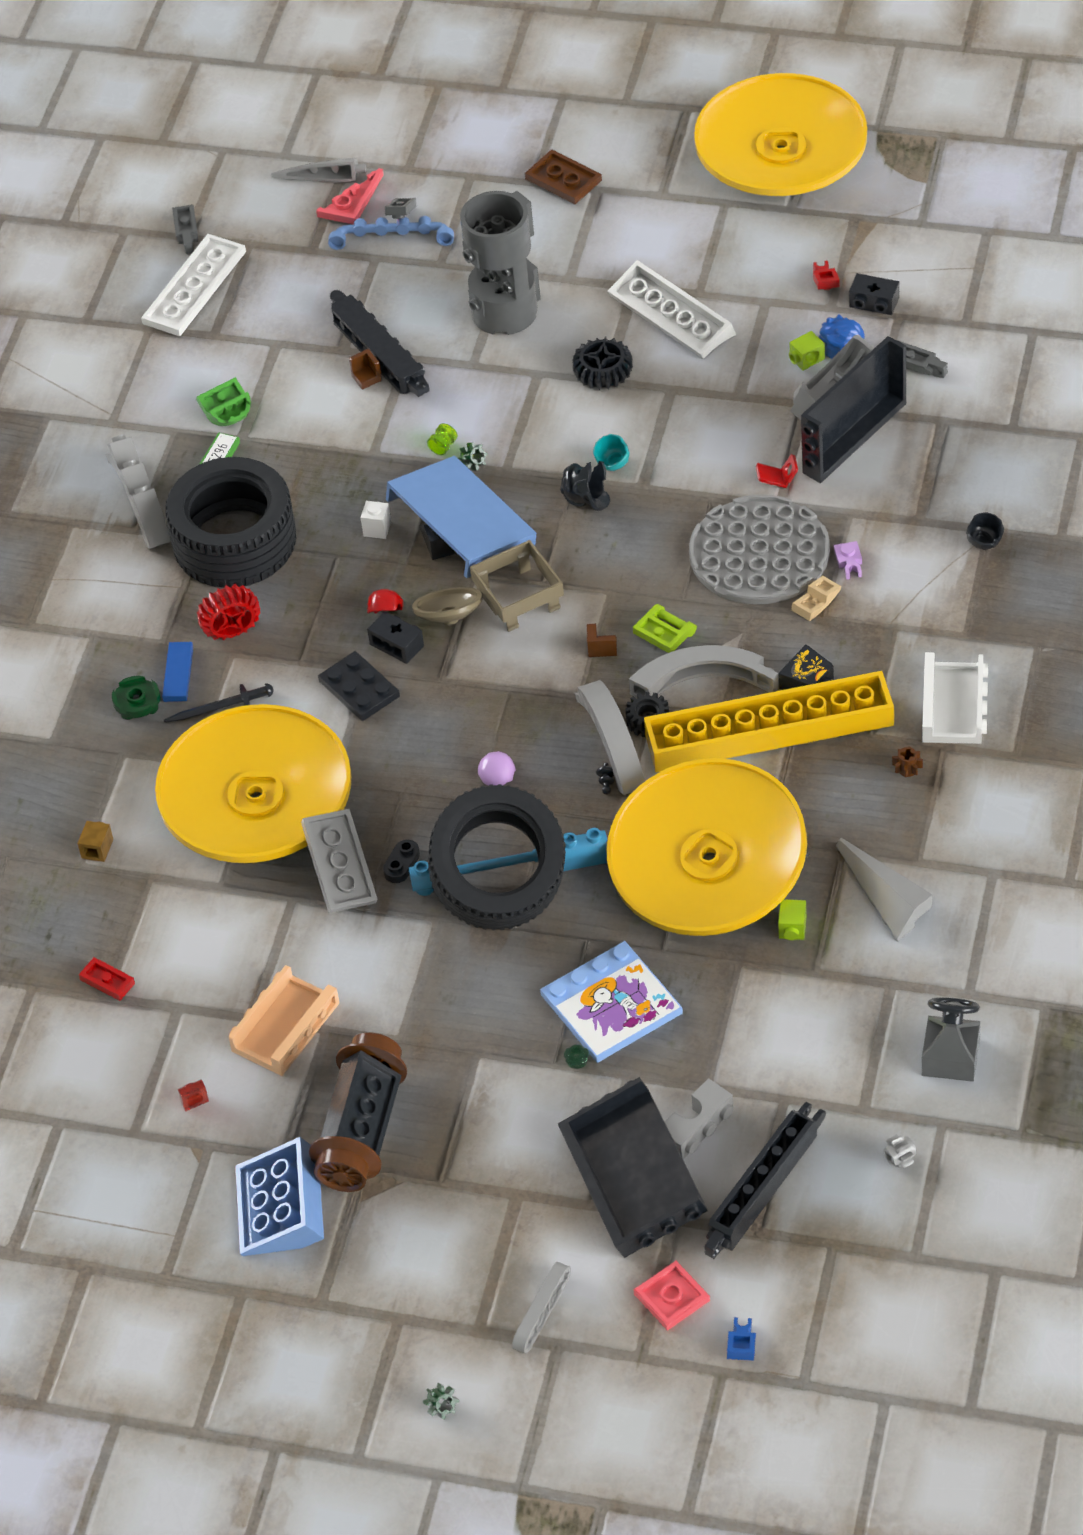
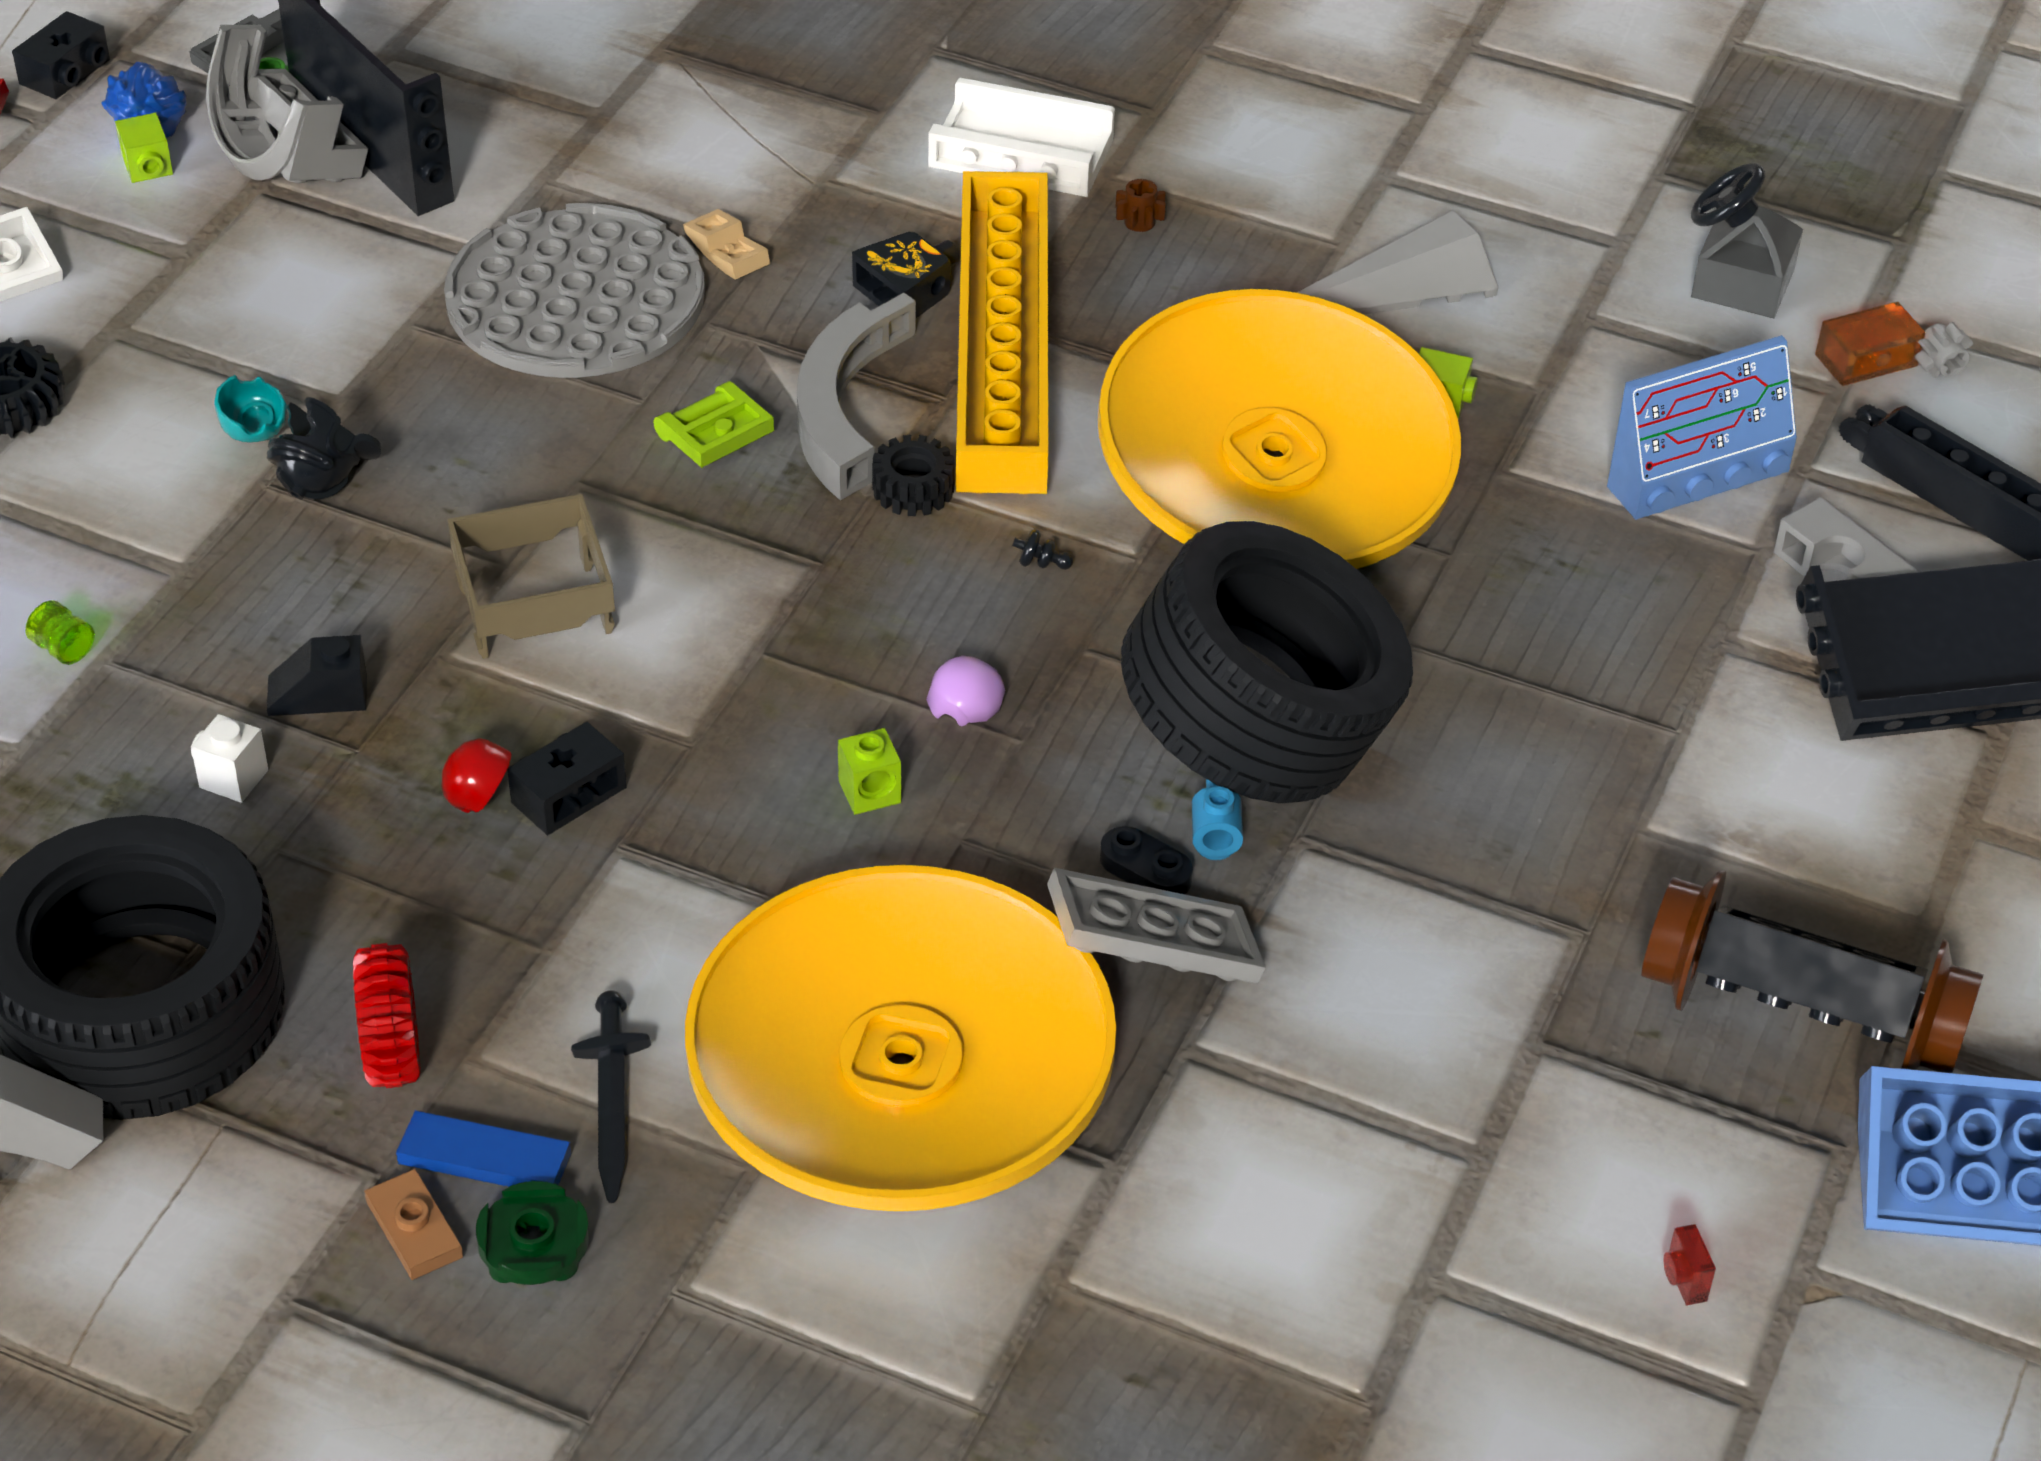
camera: 85 degrees left, 5 degrees down
(95, 841) = (938, 1355): pearl gold brick -> none
(106, 979) = (1338, 1385): red plate -> none
(136, 659) = (413, 1224): none -> medium nougat plate
(282, 1021) = (1523, 1092): light nougat panel -> none
(358, 686) = (659, 861): black plate -> none
(425, 742) = (869, 771): none -> lime brick
(447, 605) = (527, 678): dark tan dish -> none
(461, 510) = (295, 615): medium blue panel -> none
(478, 456) = (139, 593): dark green gear -> none
(578, 1061) = (1676, 693): clear green plate -> none
(600, 645) = (710, 510): reddish brown panel -> none
(611, 1001) = (1557, 633): plate -> none
(614, 735) = (954, 488): light grey arch -> none
(762, 1032) = (1704, 428): none -> medium blue slope
(777, 476) = (415, 236): red bracket -> none
(849, 556) = (652, 194): lavender plate -> none
(896, 1113) = (1869, 343): none -> clear orange brick
(985, 531) = (681, 39): black hair -> none

